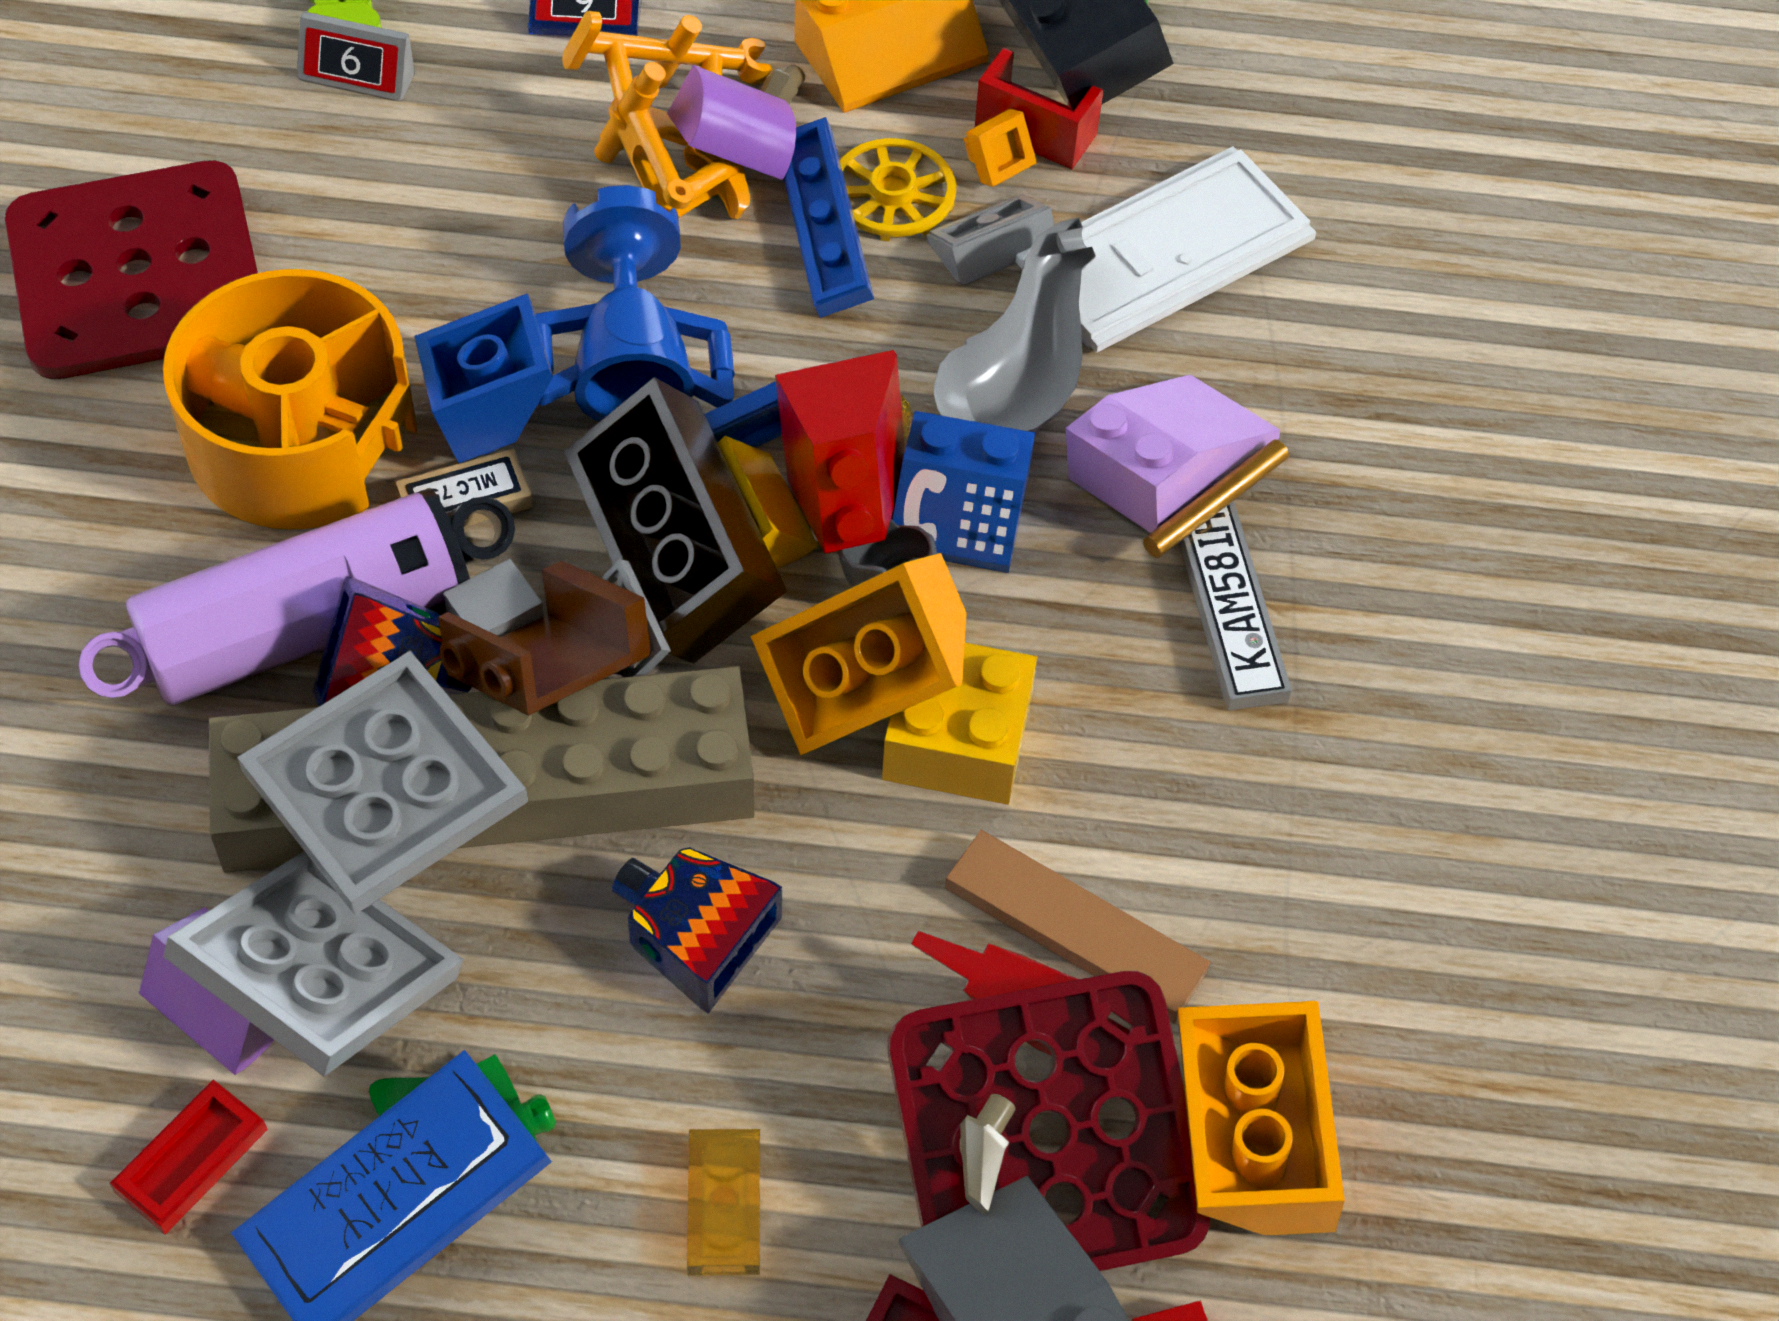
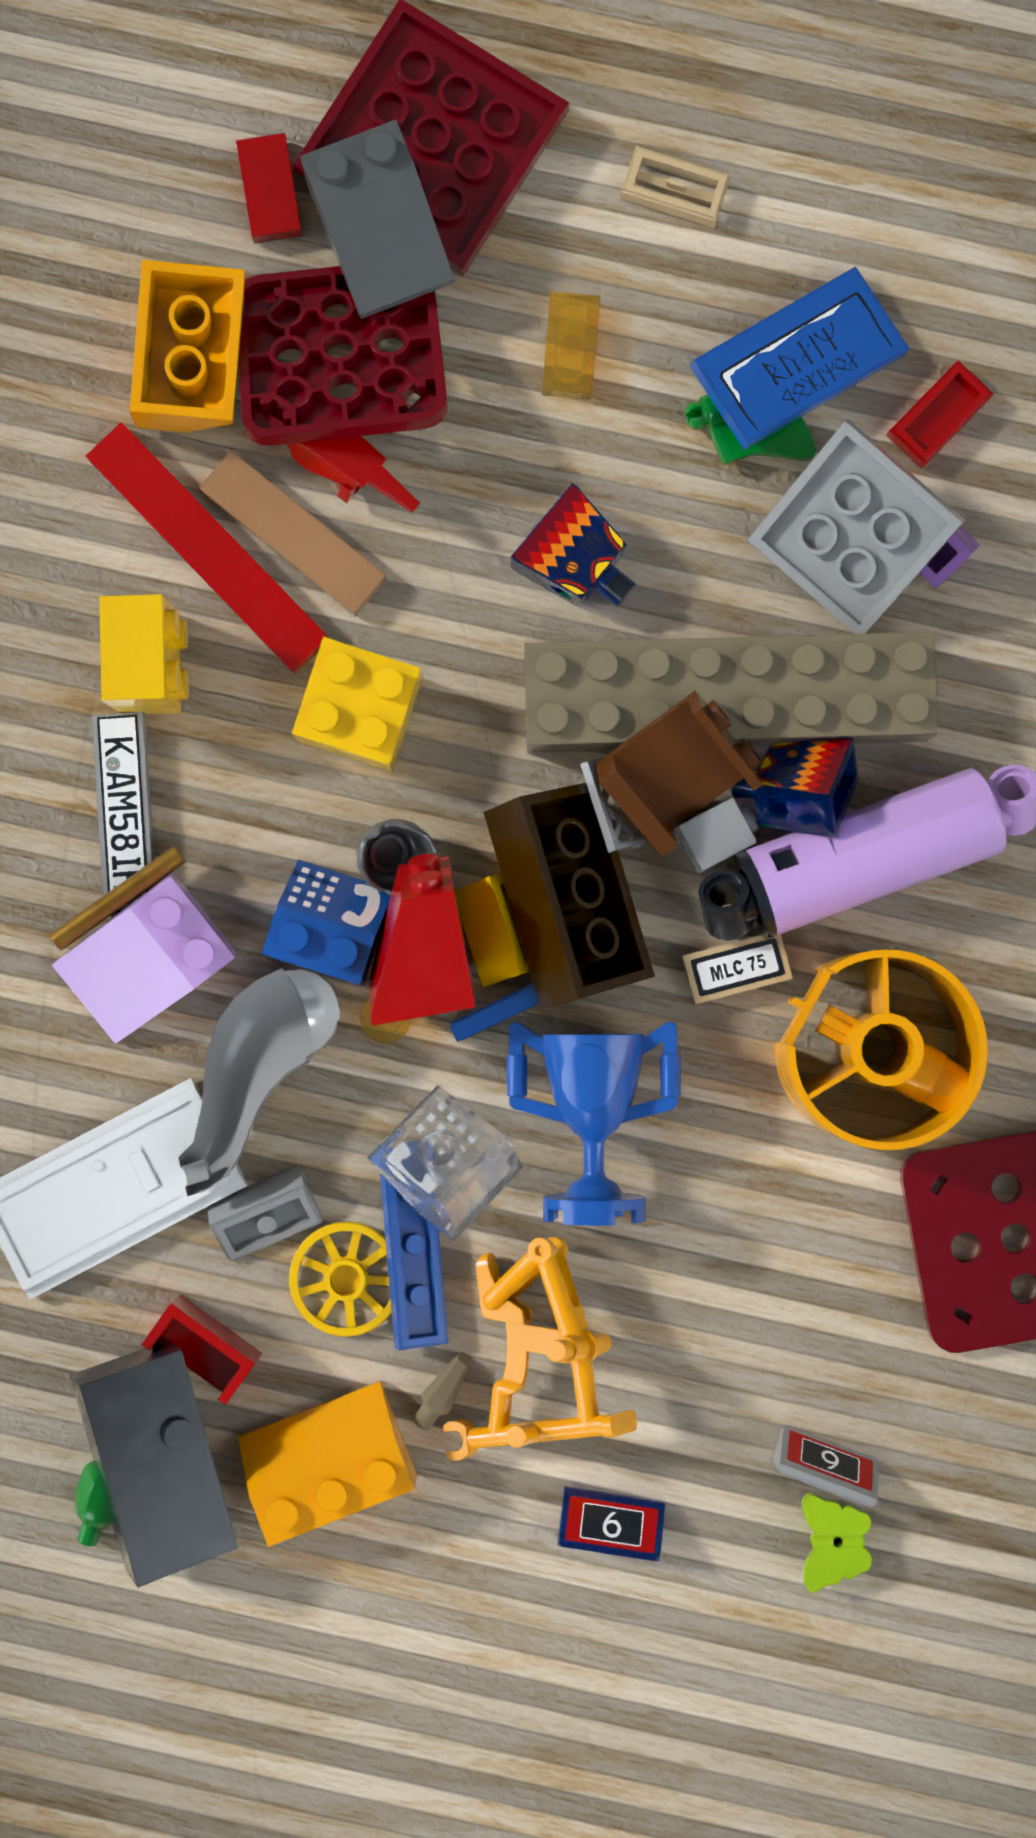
camera: 175 degrees left, 30 degrees up
(382, 781) = (806, 642): light grey plate -> none
(485, 376) = (719, 1055): blue slope -> none
(735, 122) = (484, 1330): medium lavender brick -> none
(795, 270) = (446, 1162): none -> clear slope
(866, 652) = (425, 742): light orange slope -> none
(984, 1150) = (387, 324): dark tan bar -> none
(1000, 147) = (243, 1307): light orange tile -> none
(1185, 896) = (207, 547): none -> red tile
(1240, 734) = (142, 654): none -> yellow brick

